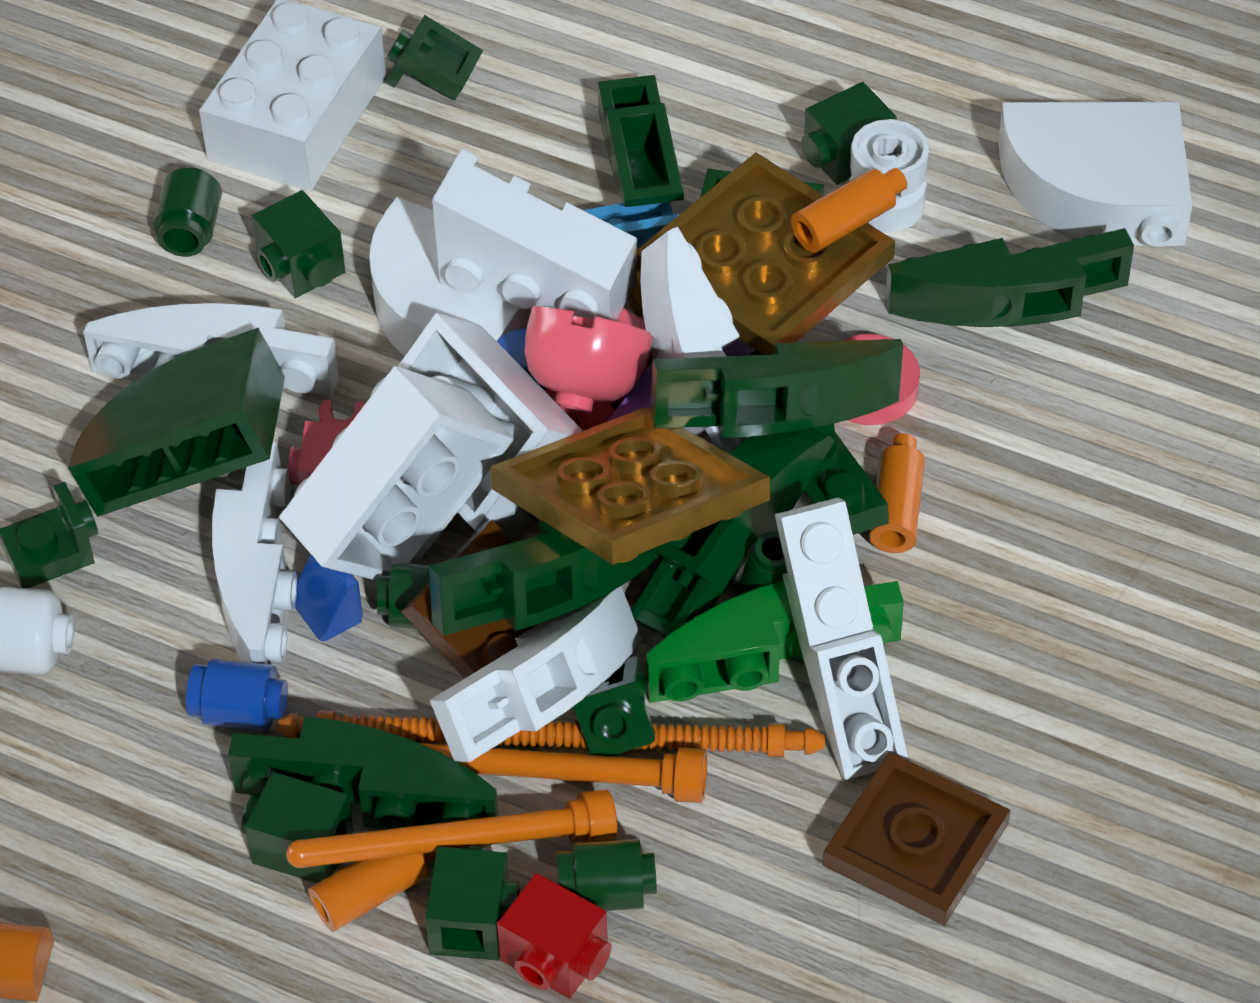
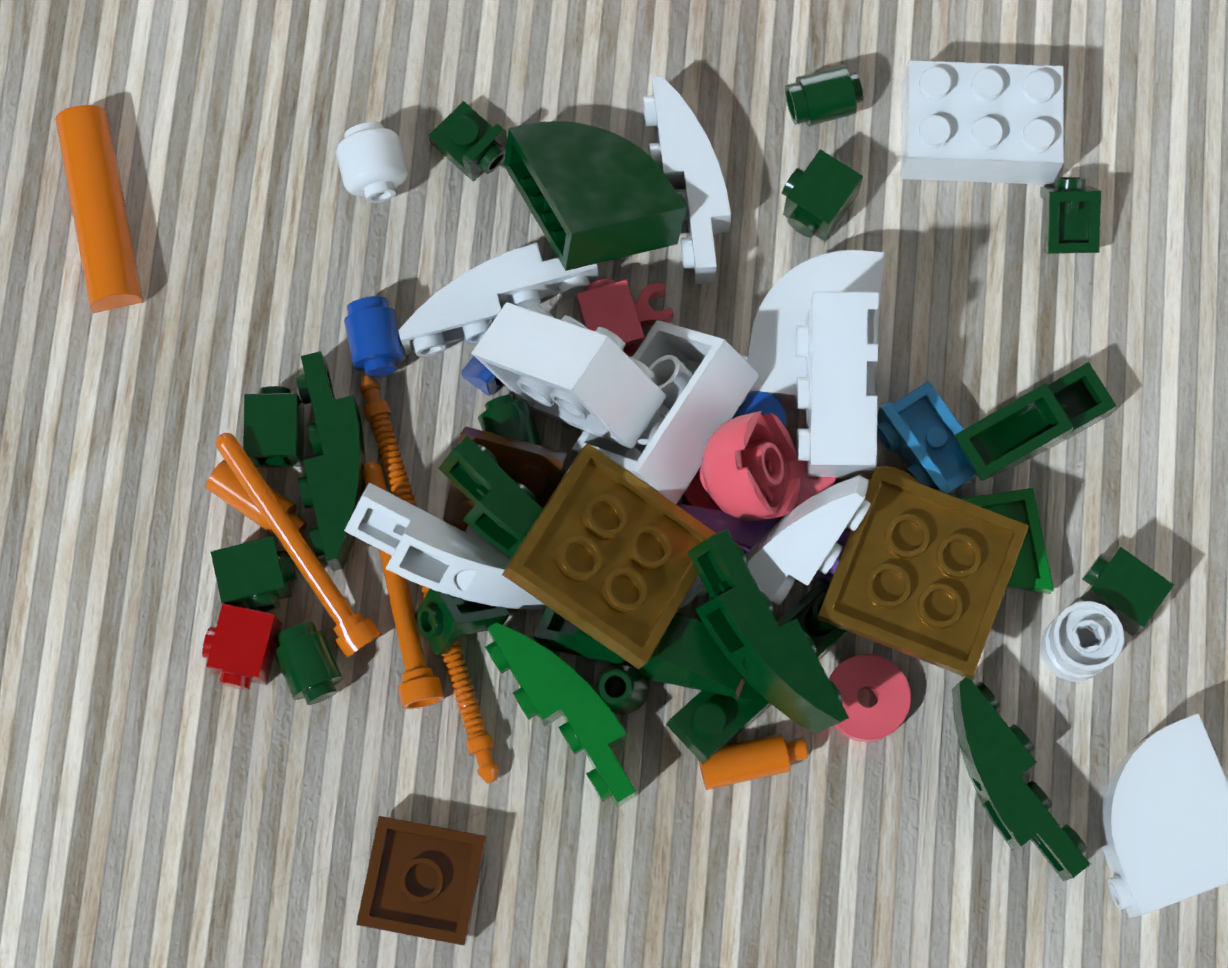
camera: 70 degrees right, 25 degrees up
(838, 637) = (553, 766): white slope -> none
(847, 208) = (981, 627): orange cylinder -> none

